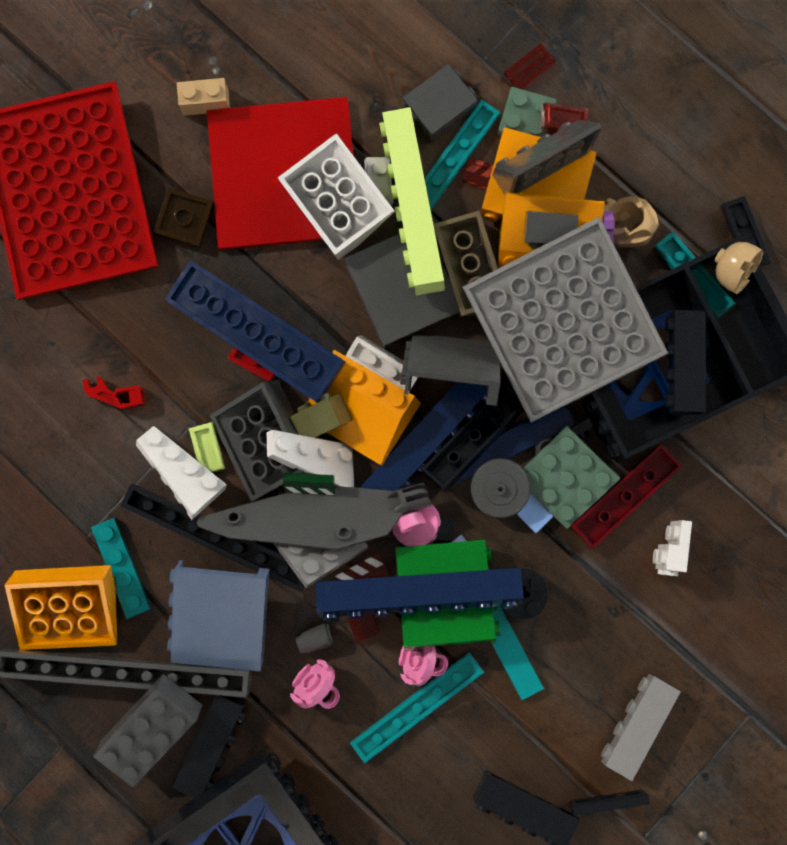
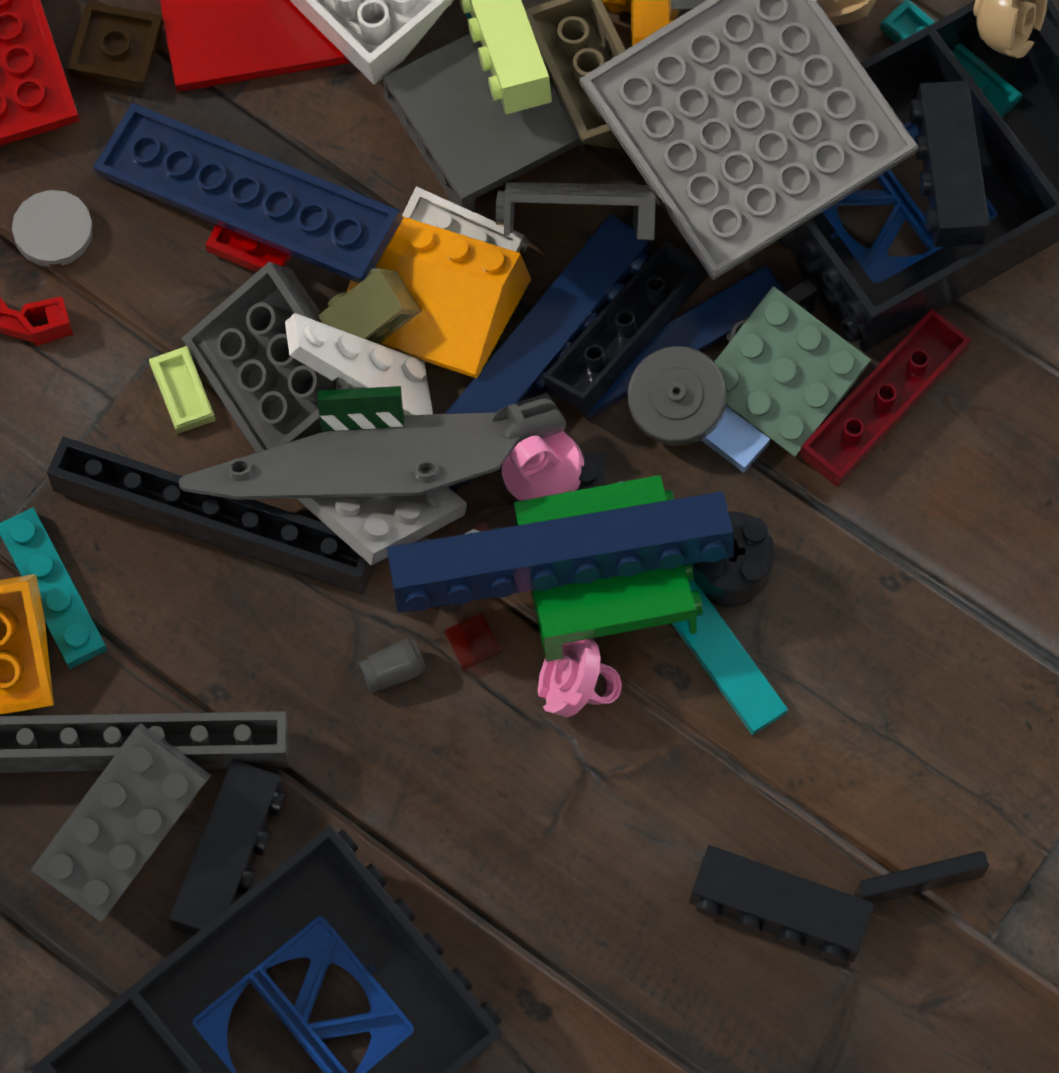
camera: 10 degrees left, 15 degrees down
(137, 336) = (52, 228): none -> light grey tile
(186, 477) = (148, 421): white wing -> none
(218, 617) = (226, 629): sand blue panel -> none
(314, 684) = (398, 733): bright pink tile -> none
(416, 707) = (575, 763): teal tile -> none
(639, 727) = (957, 753): light grey brick -> none
(673, 557) = (974, 467): white plate -> none

